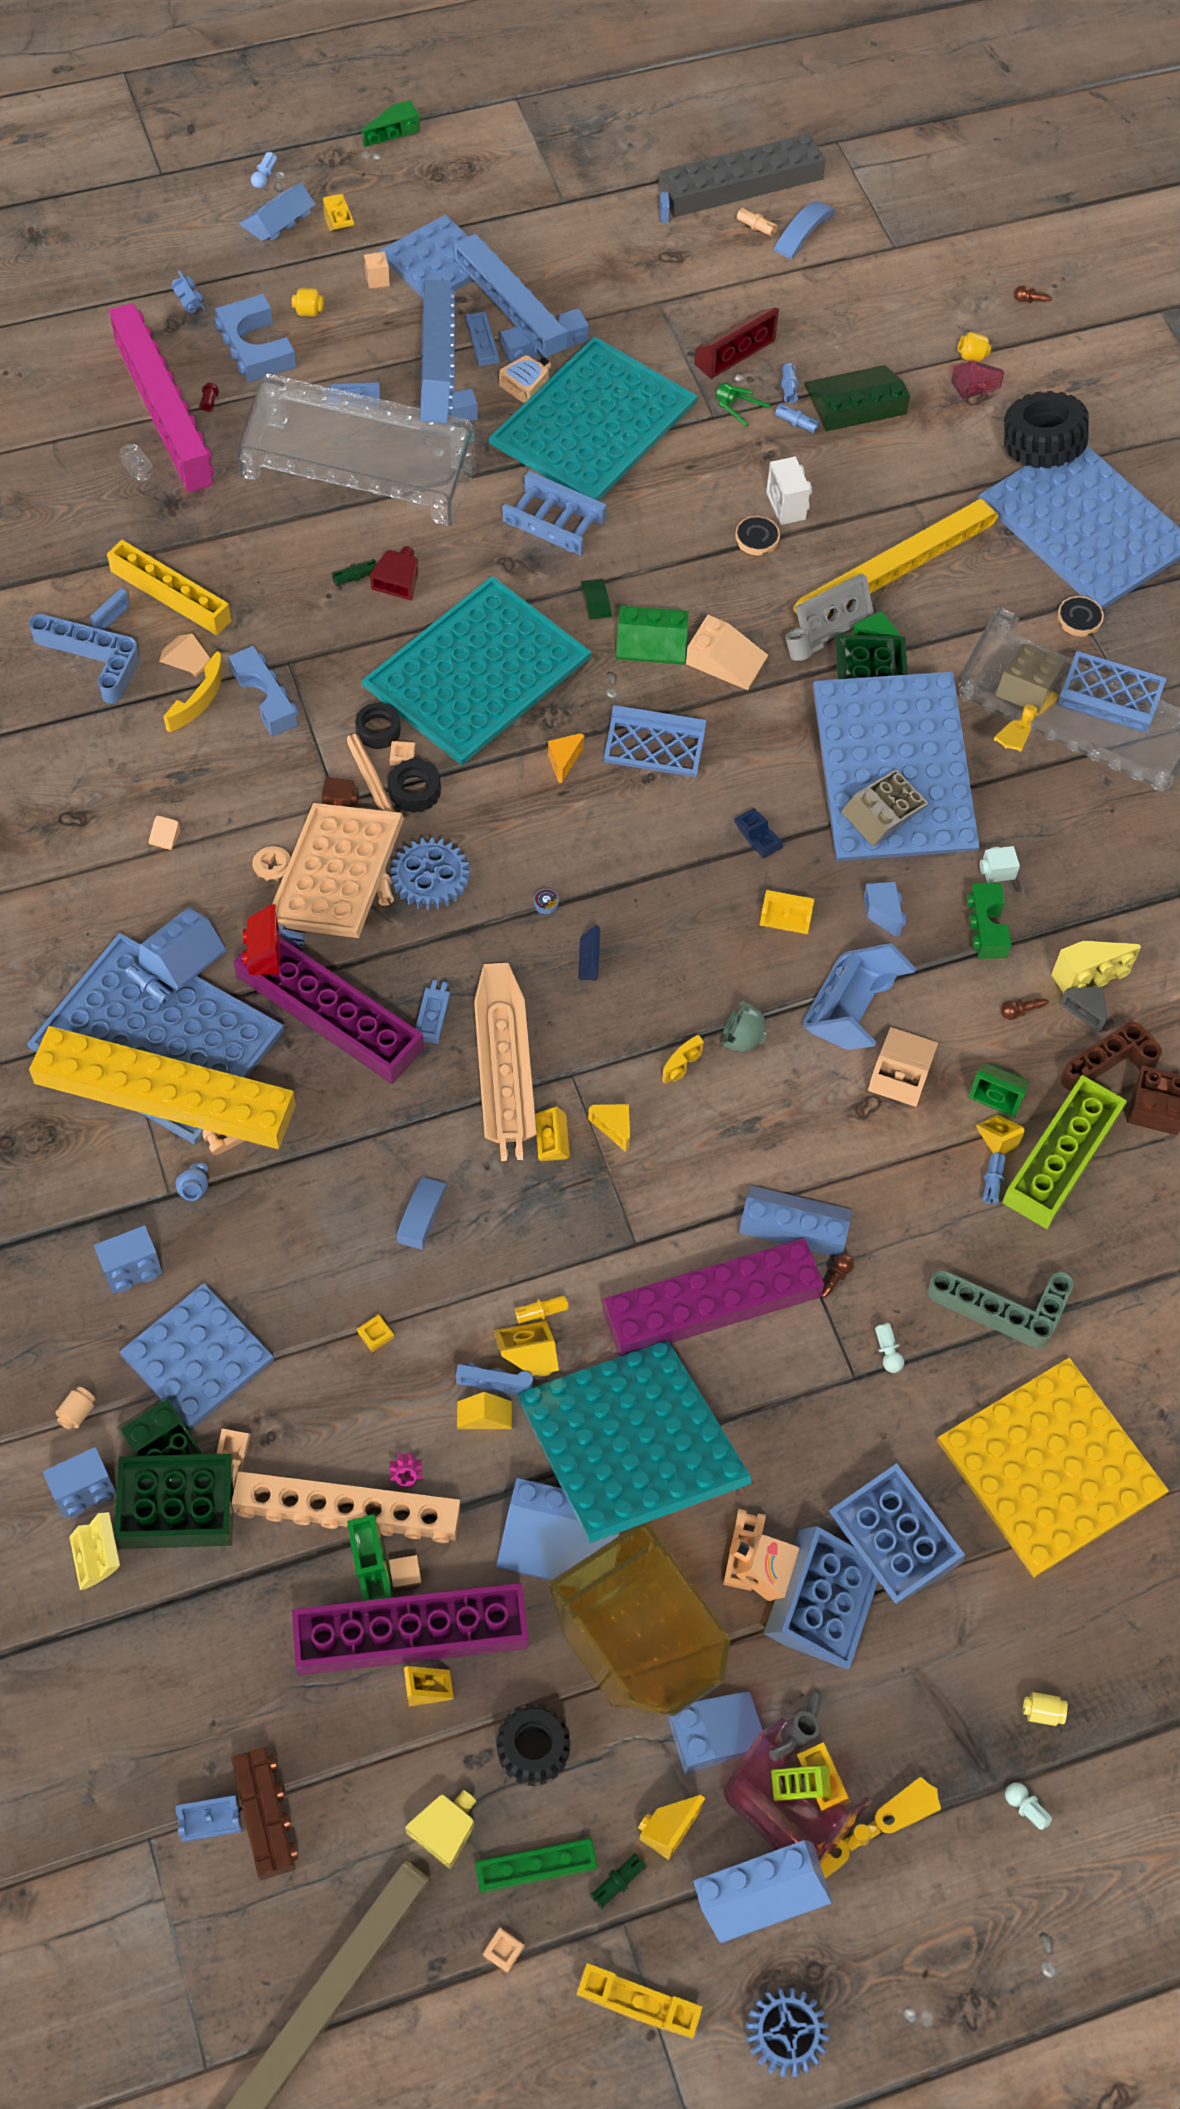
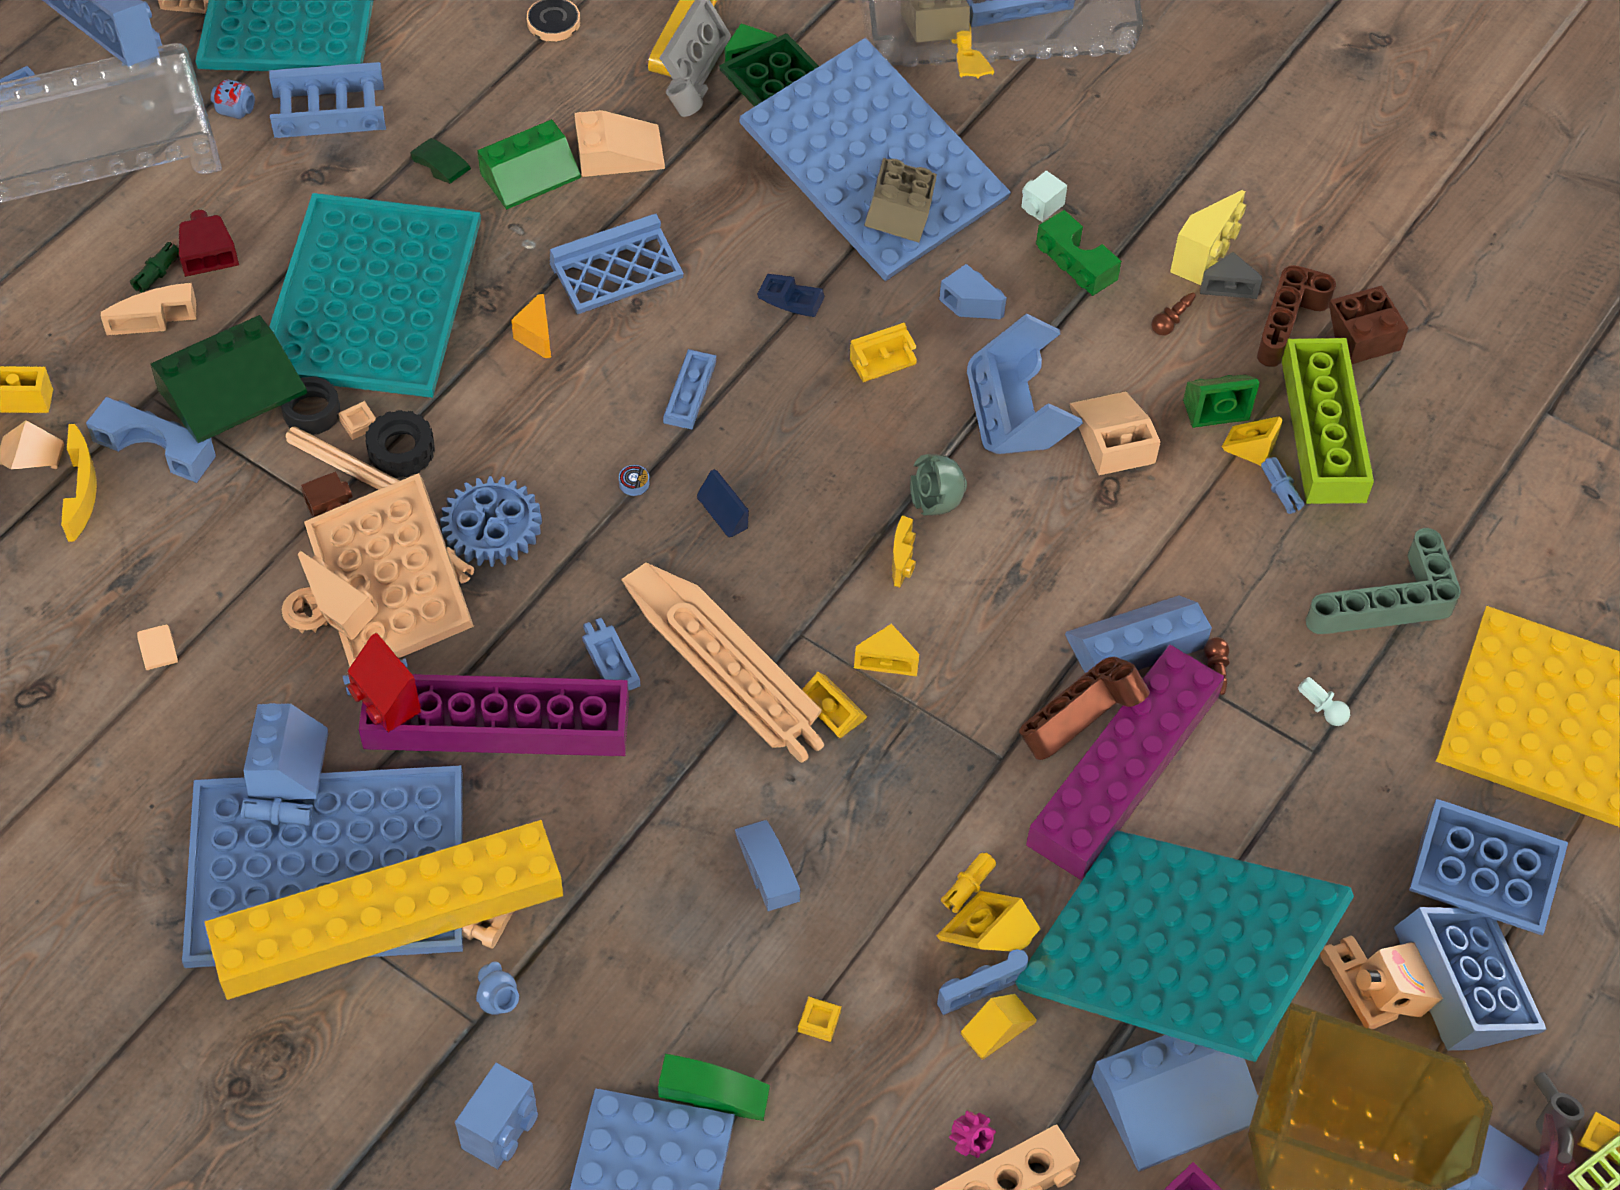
camera: 35 degrees left, 5 degrees down
(272, 1331) = (712, 1087): none -> green slope
(286, 865) = (340, 603): none -> light nougat slope
(329, 601) = (150, 310): none -> light nougat slope
(333, 677) = (227, 379): none -> dark green slope
(493, 478) = (232, 99): none -> medium blue head
(635, 859) = (689, 389): none -> medium blue tile
(708, 1240) = (1081, 704): none -> copper beam

